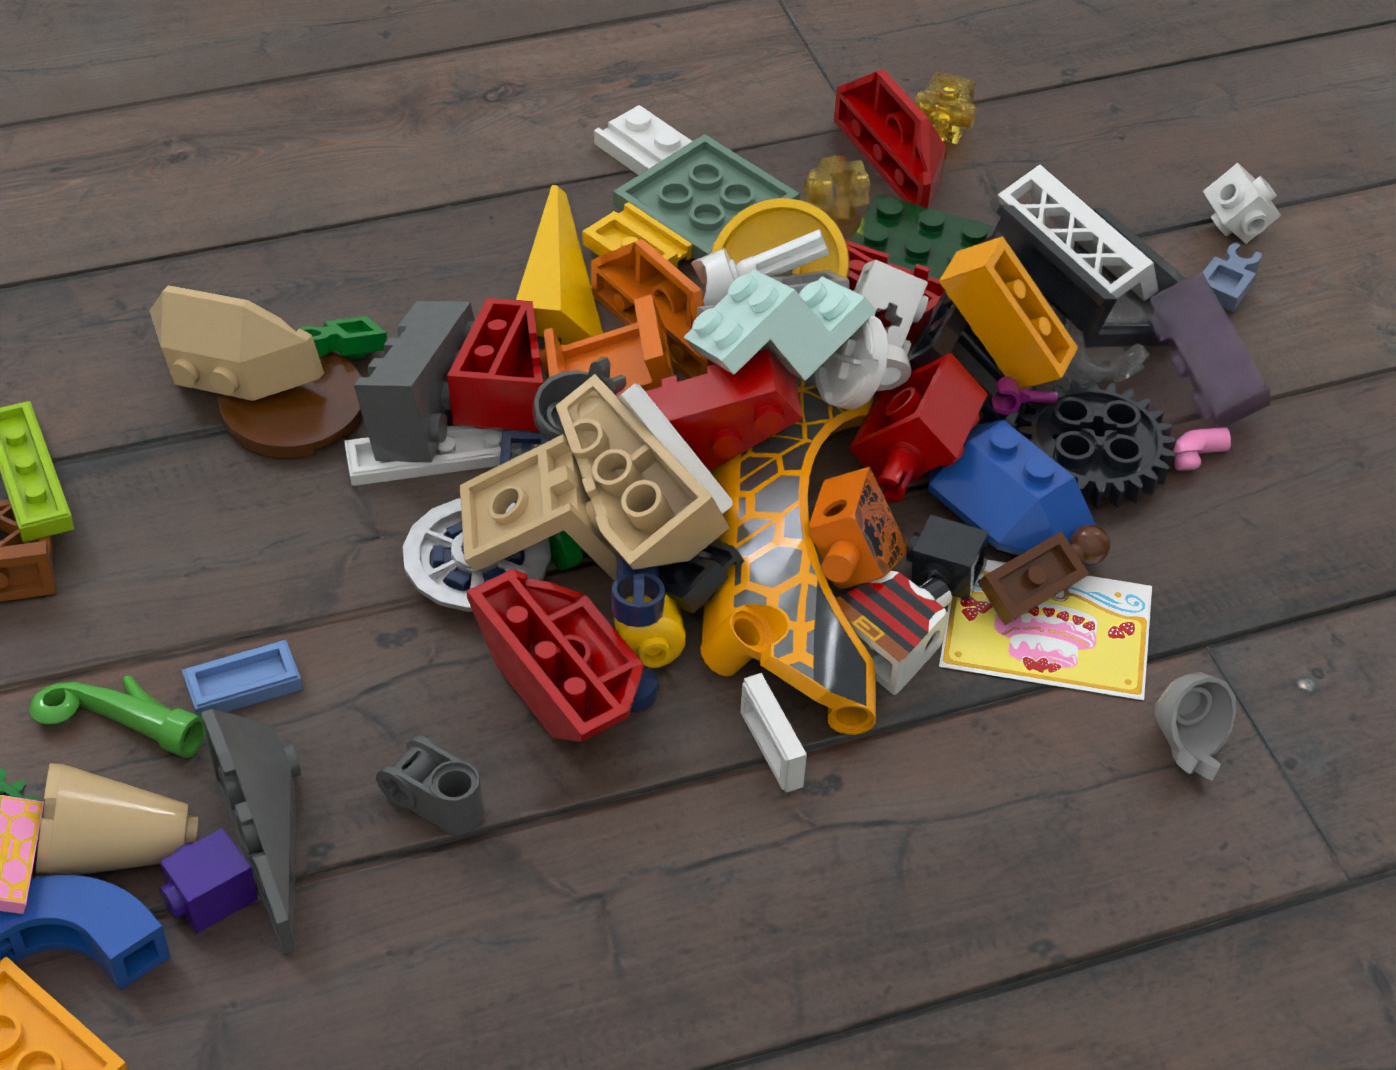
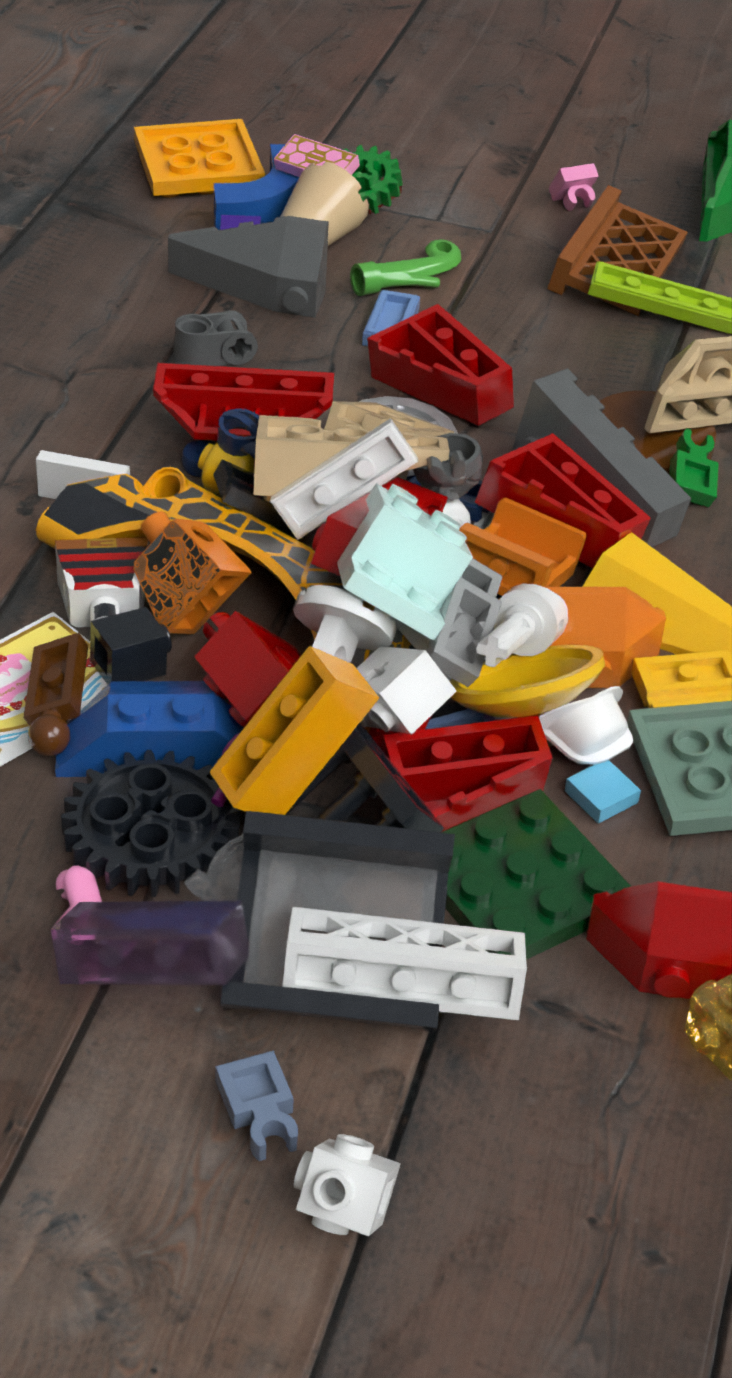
camera: 125 degrees right, 5 degrees down
(331, 558) = (443, 366): none -> red wedge
(851, 185) = (653, 842): clear yellow brick -> none

